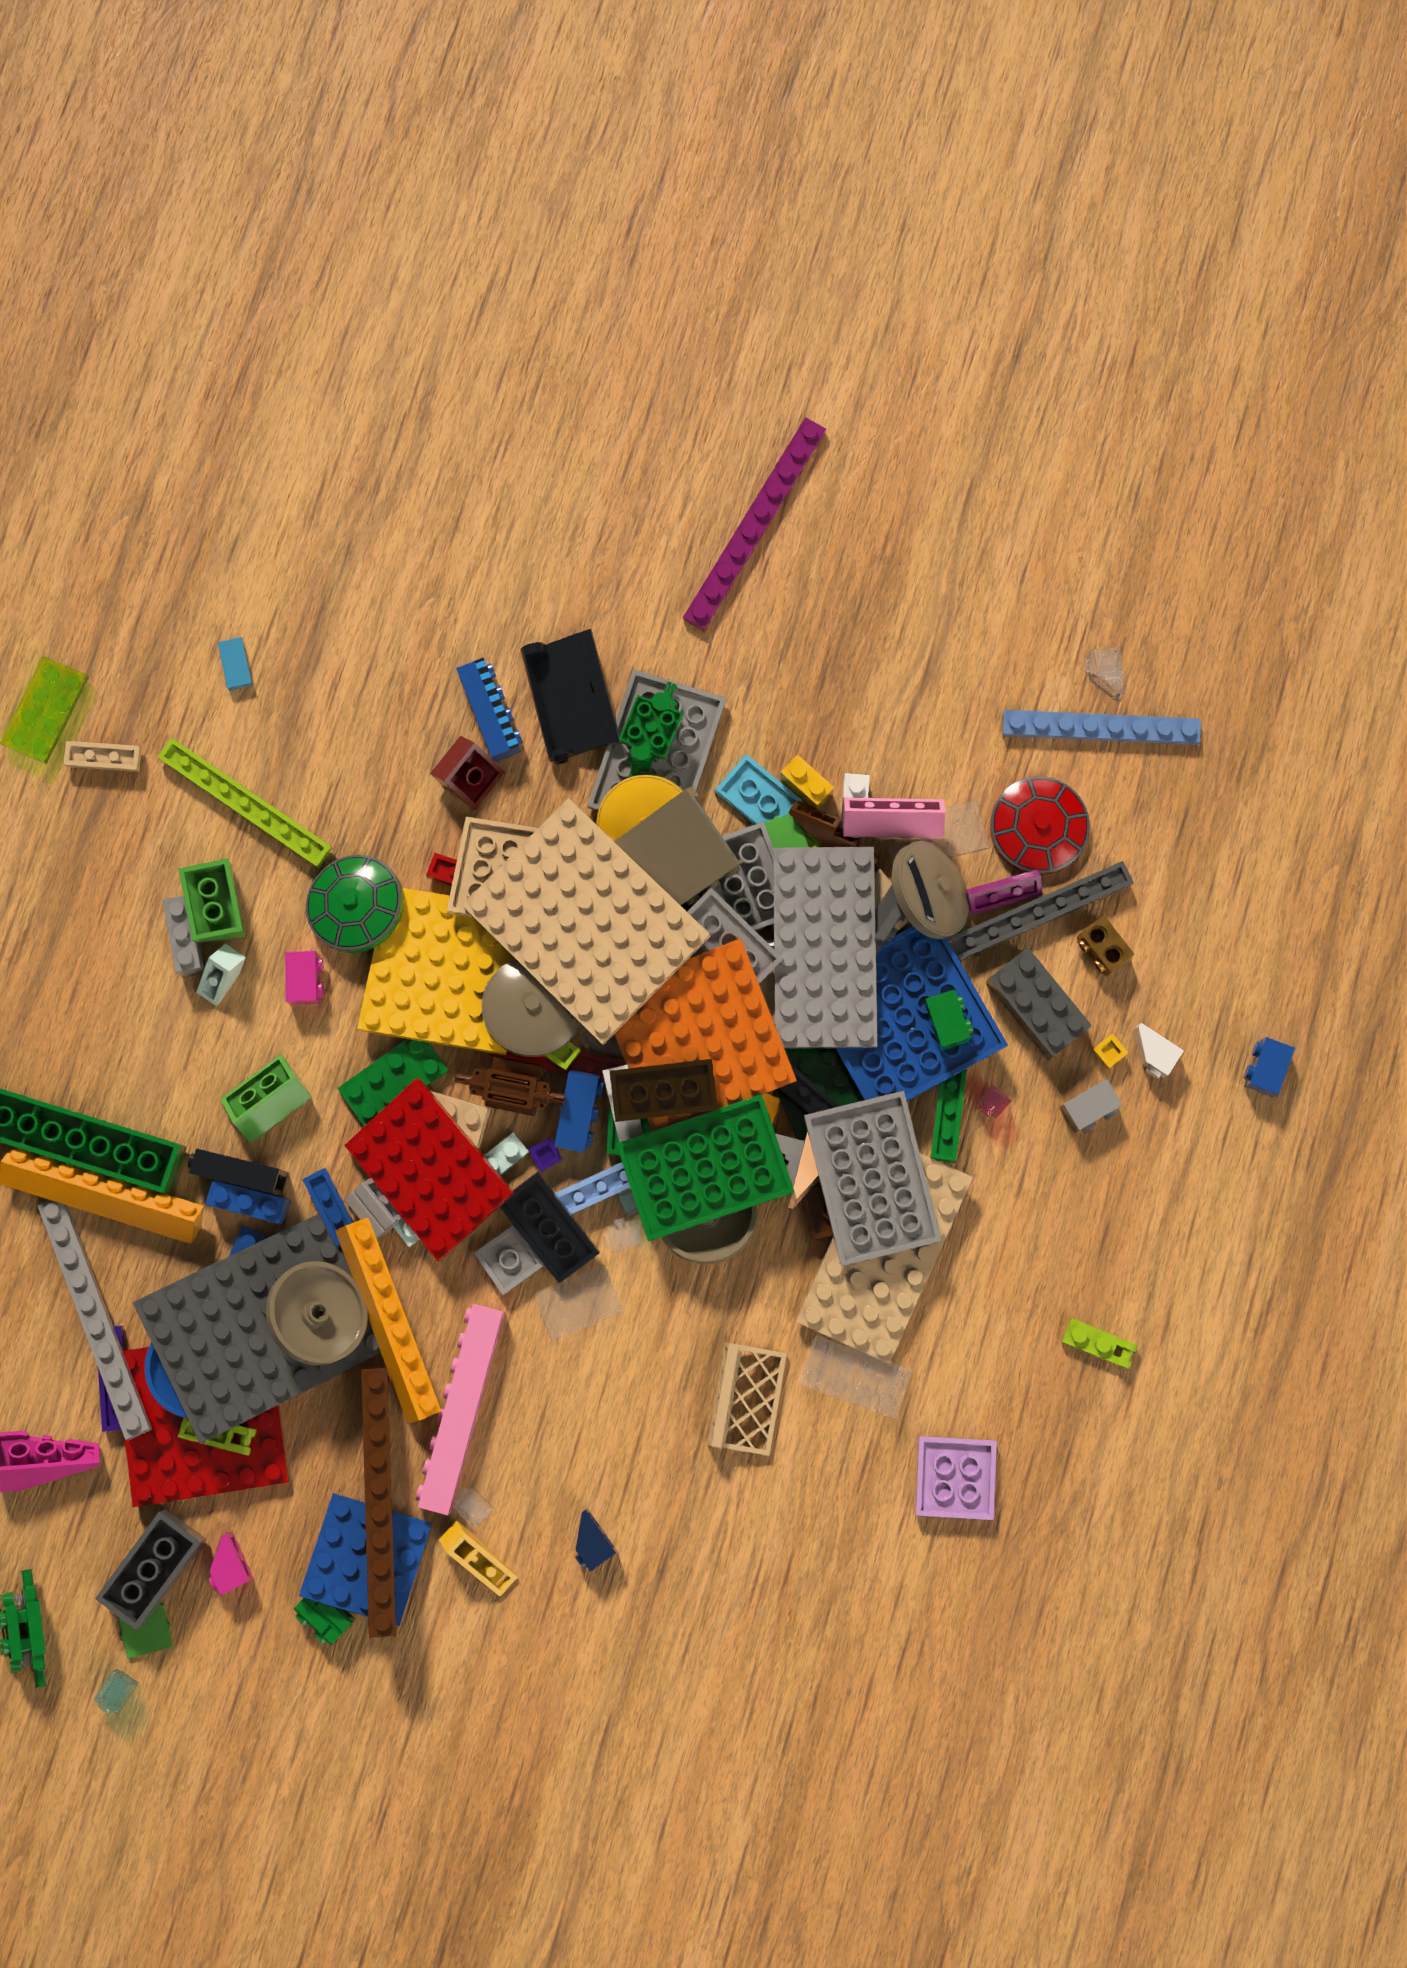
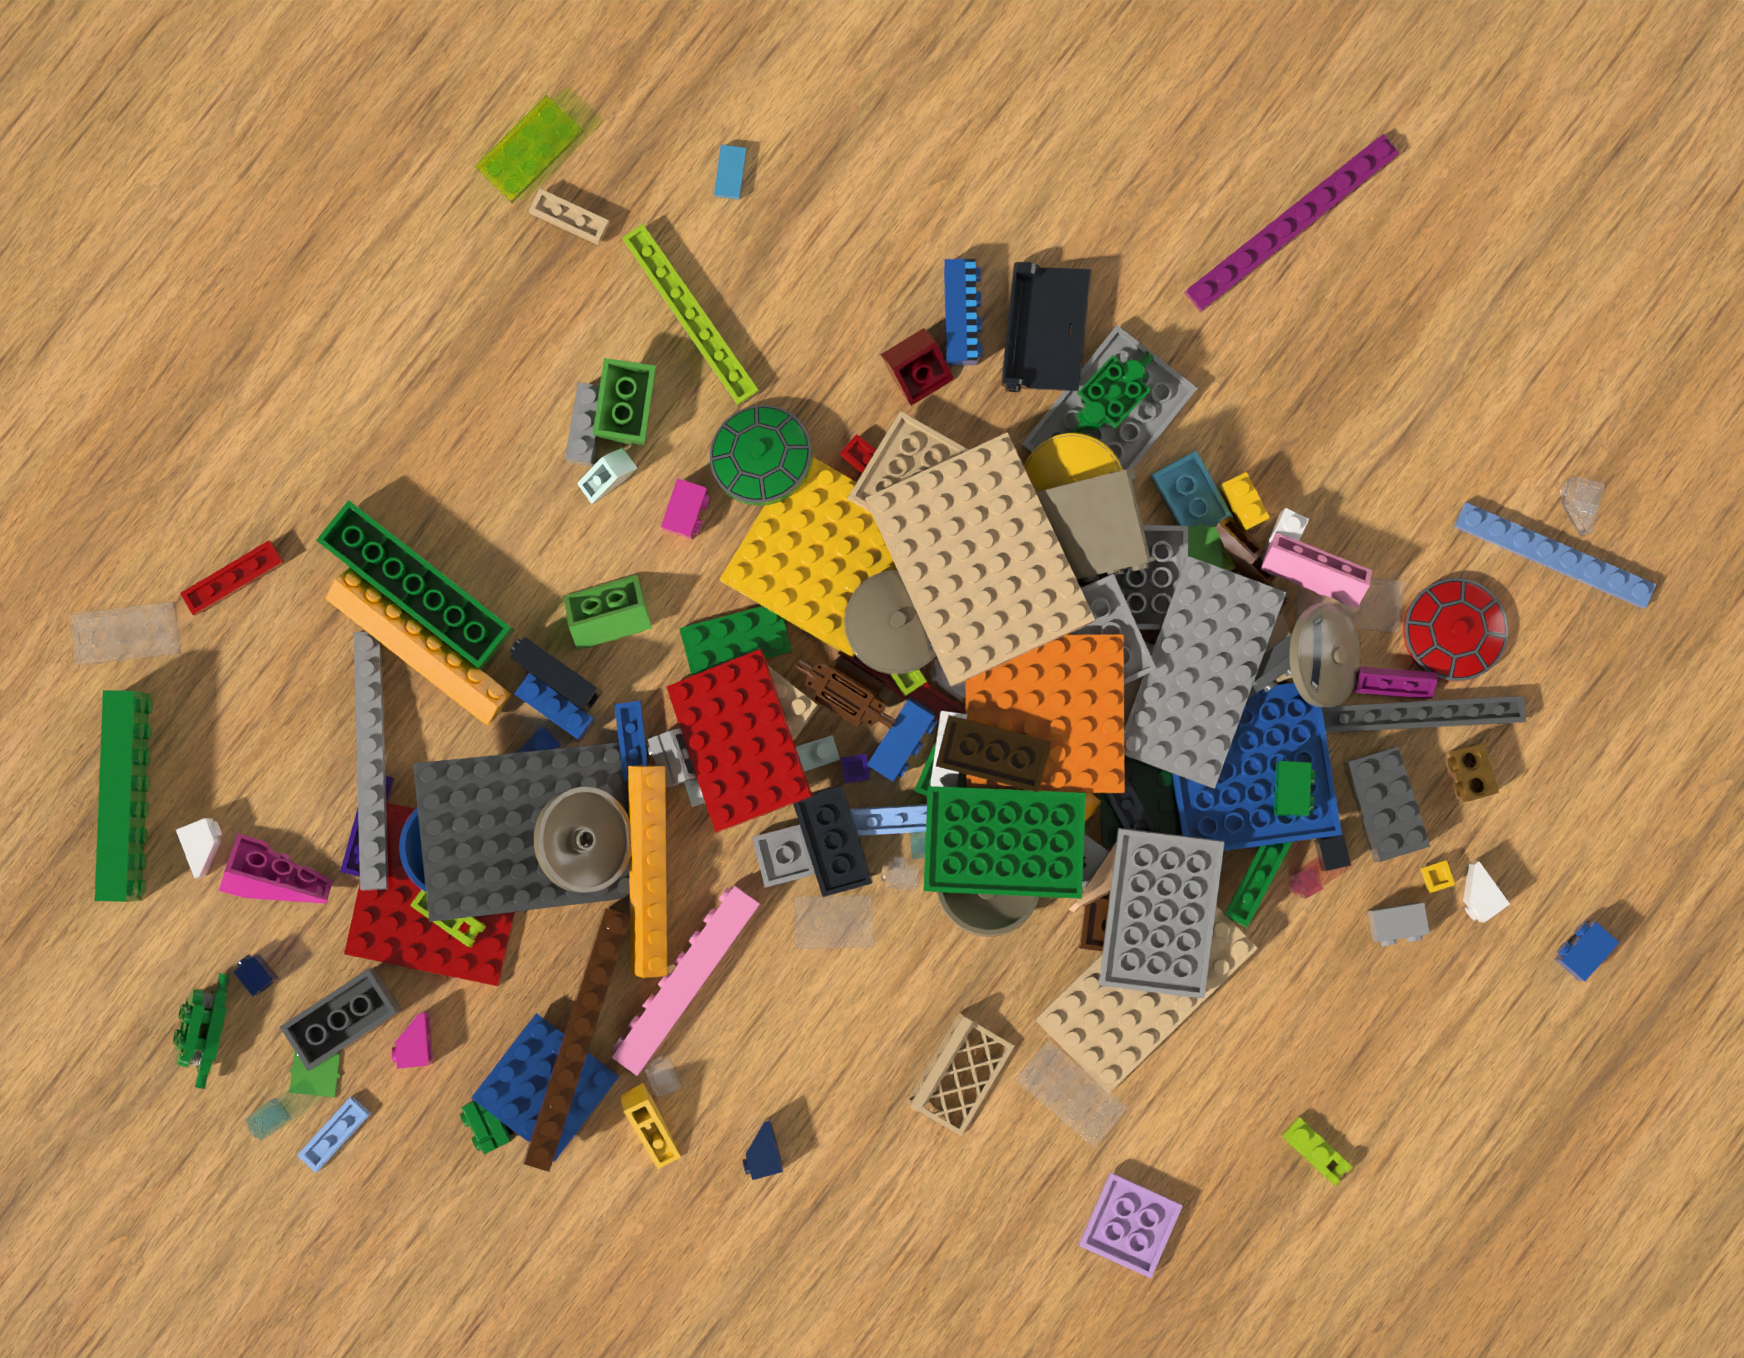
camera: 20 degrees right, 5 degrees up
(56, 1558) = (255, 974): none -> clear blue brick
(184, 1682) = (334, 1134): none -> light blue tile
(1007, 1065) = (1332, 852): none -> black brick

